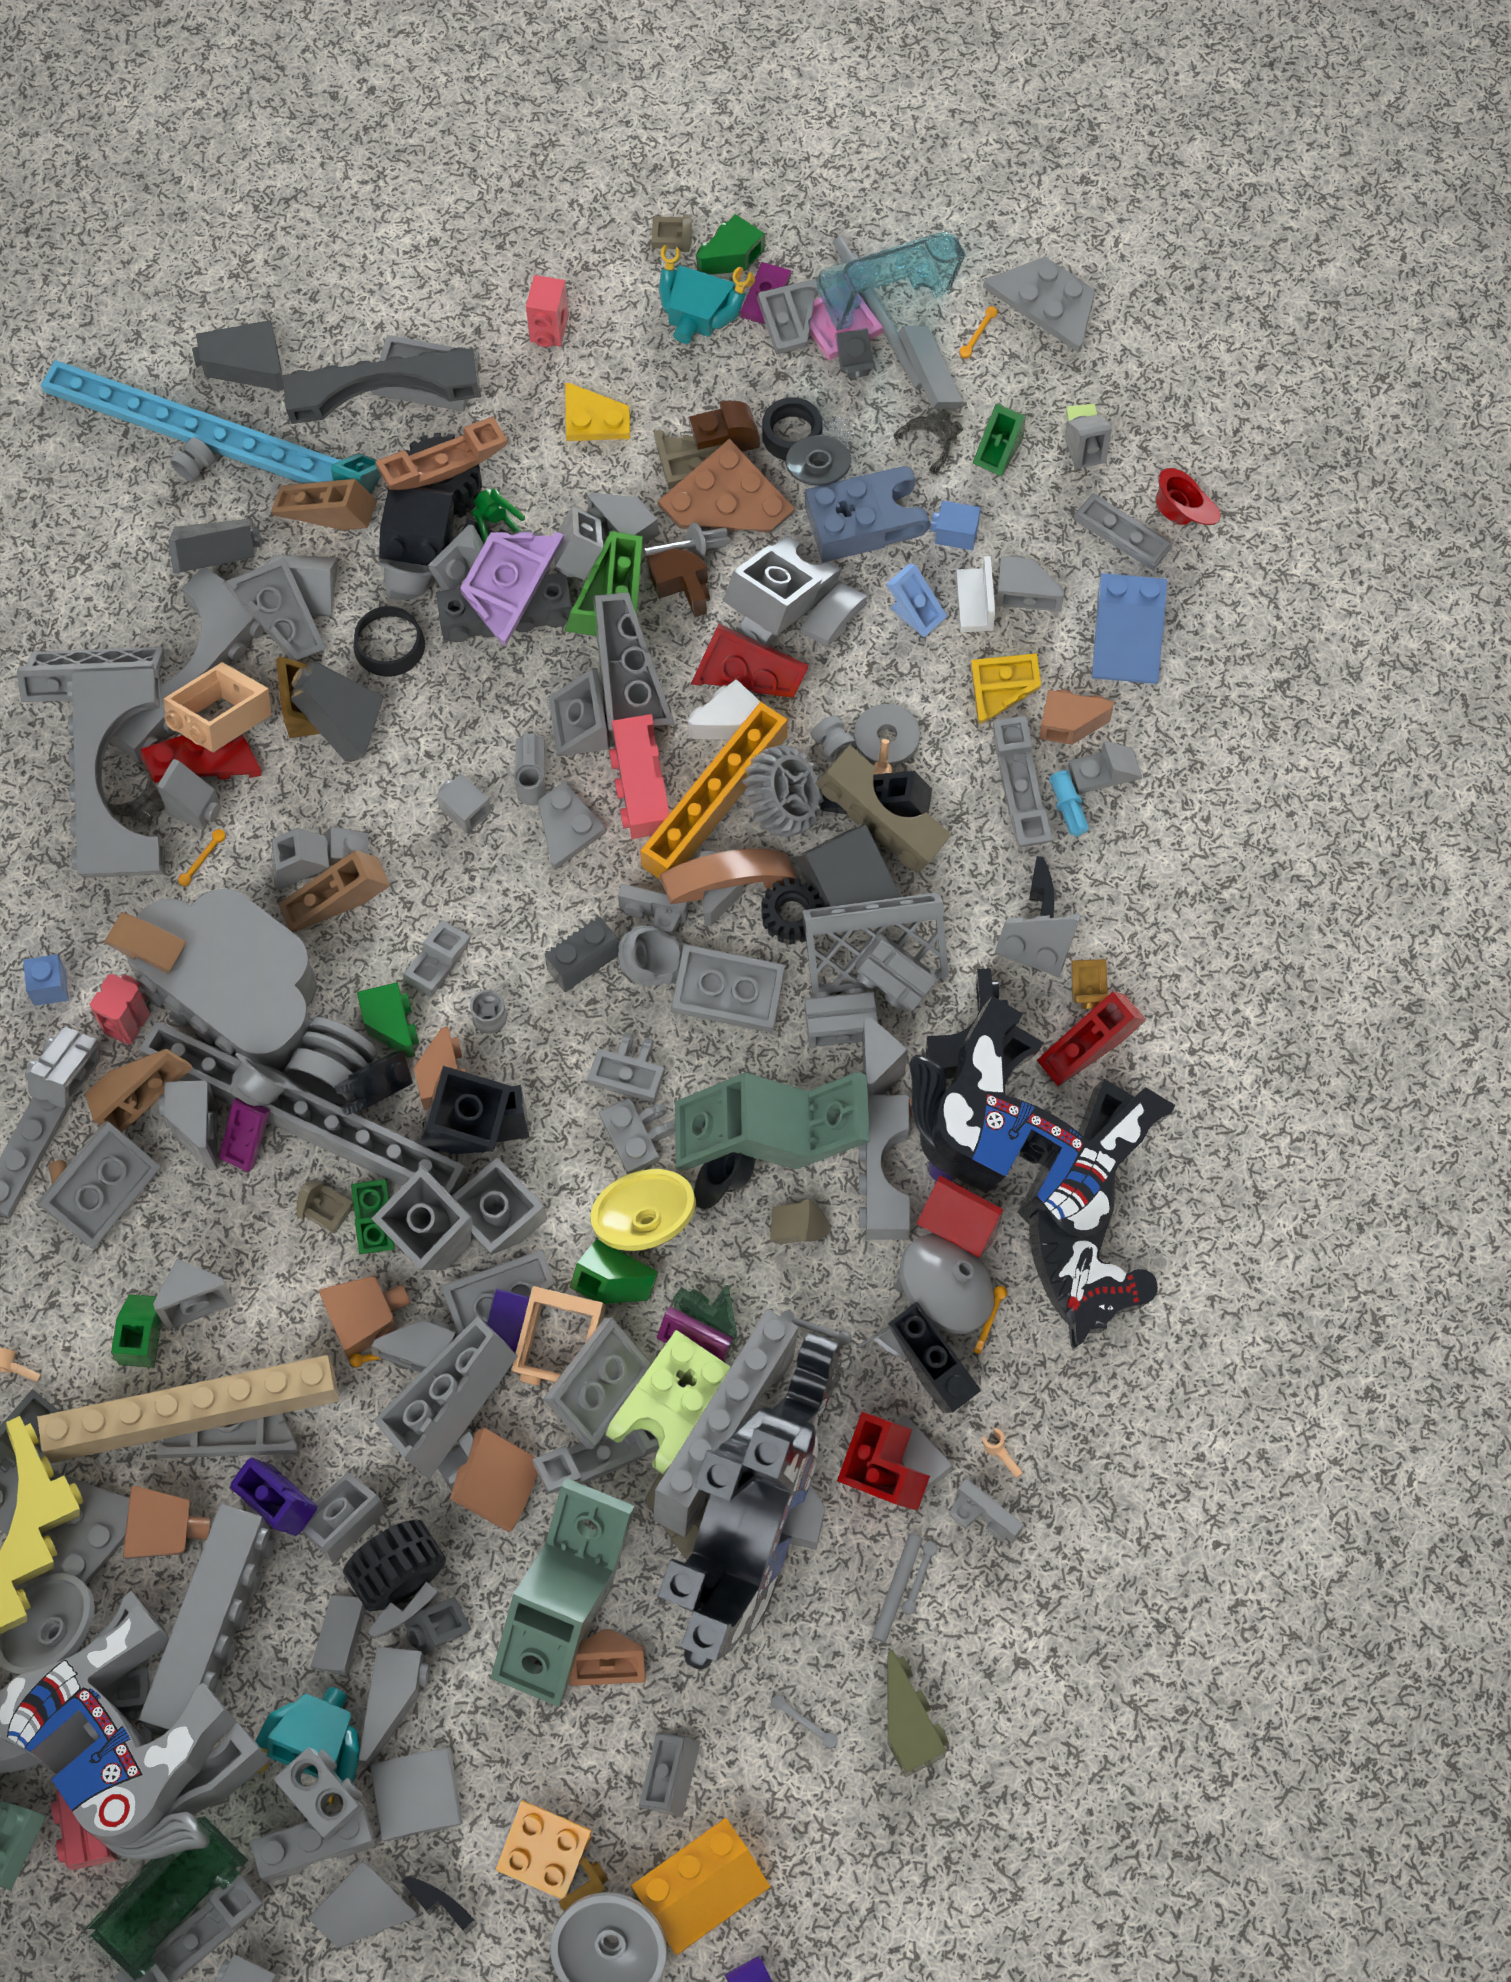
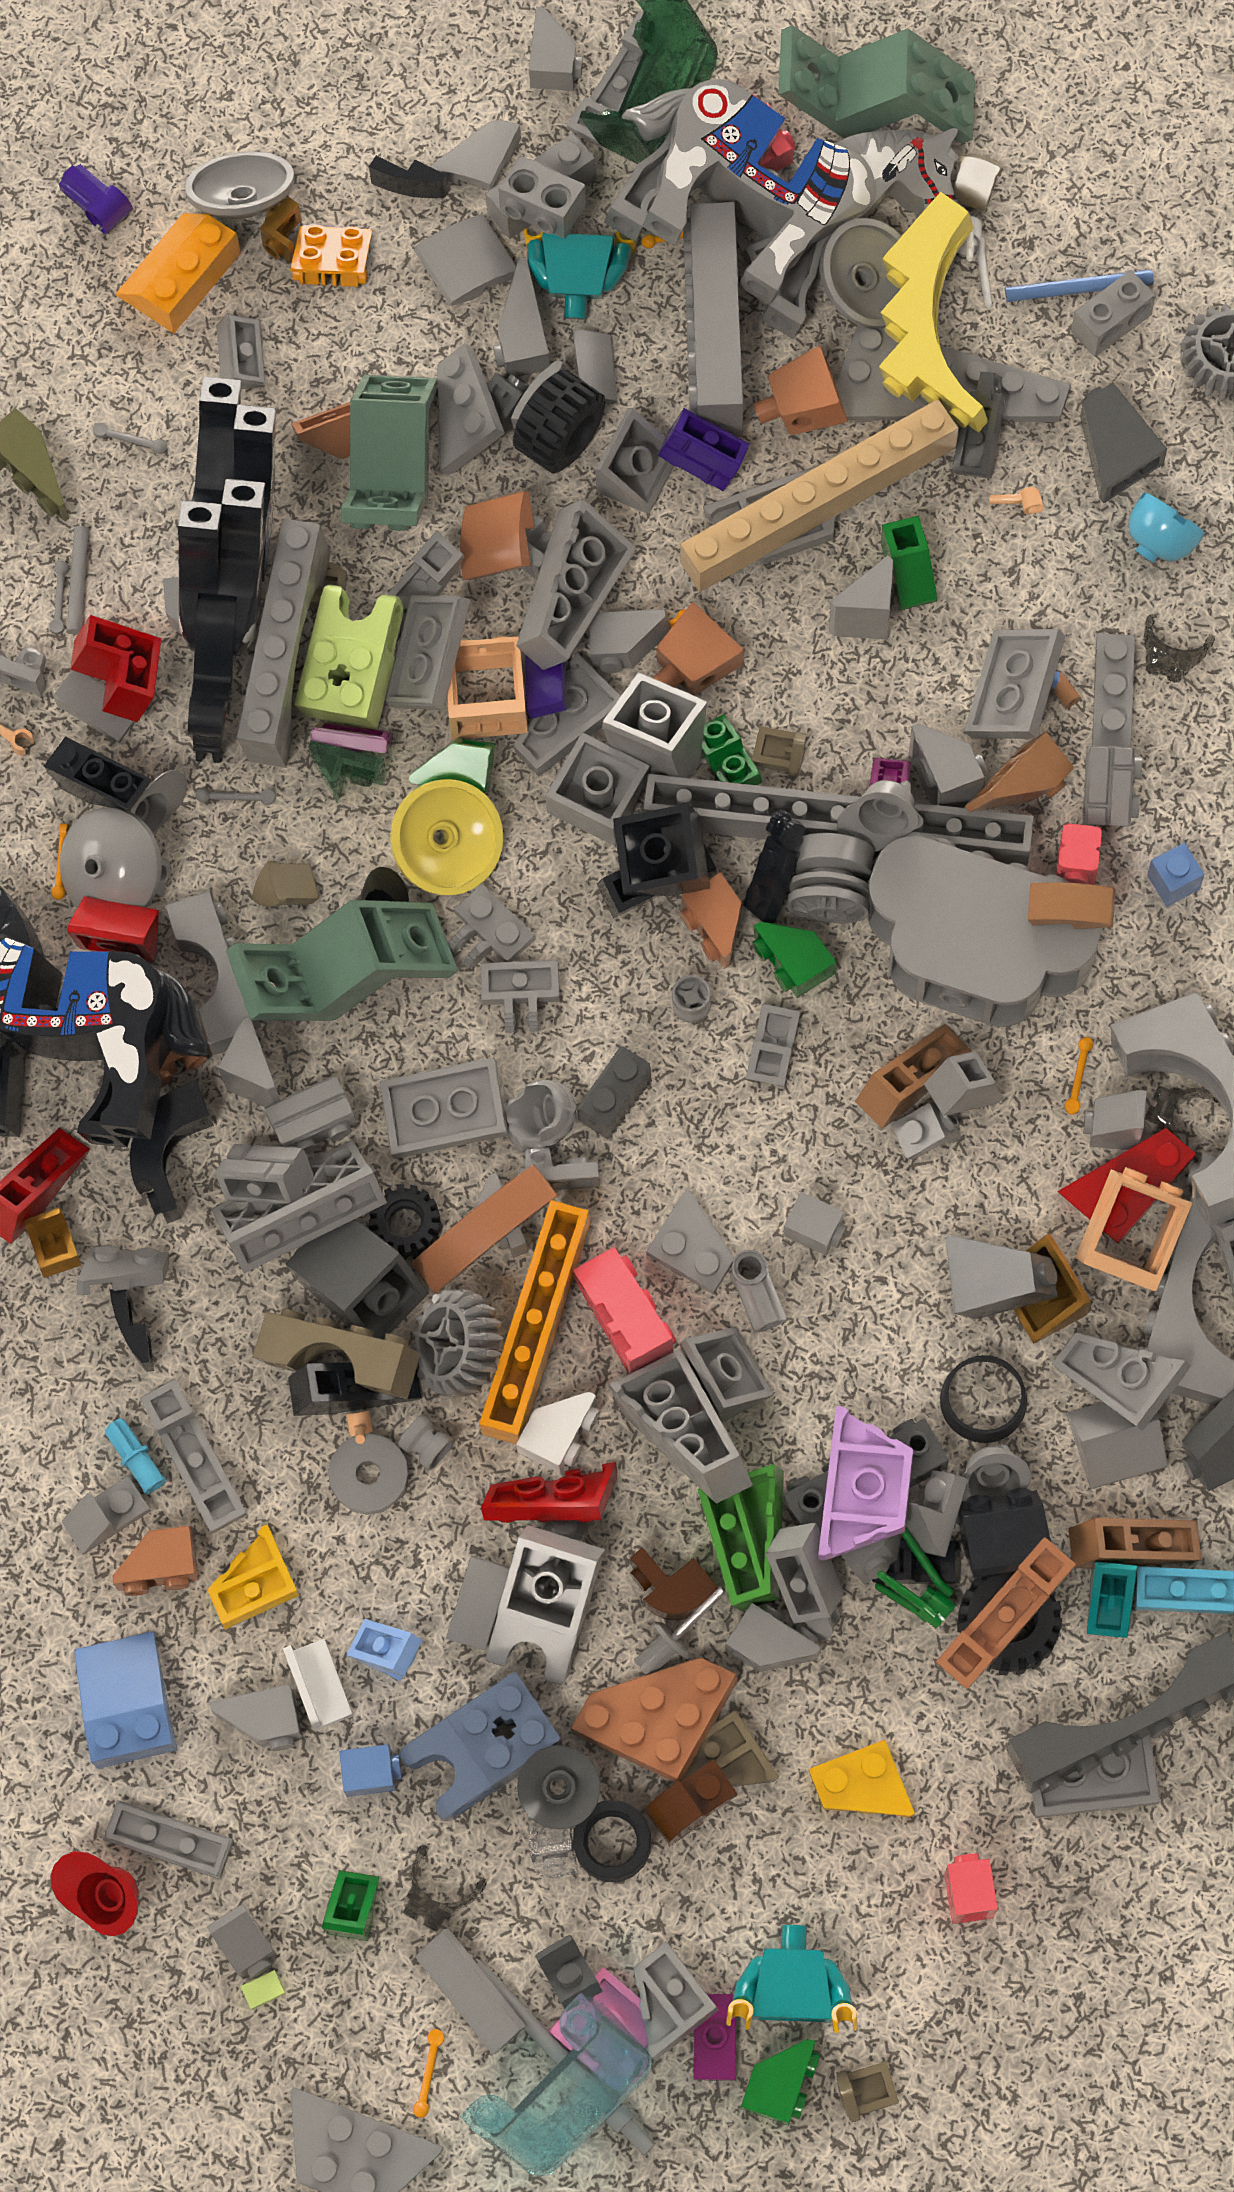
camera: 165 degrees right, 5 degrees up
(475, 1628) = (465, 410): none -> light grey wing

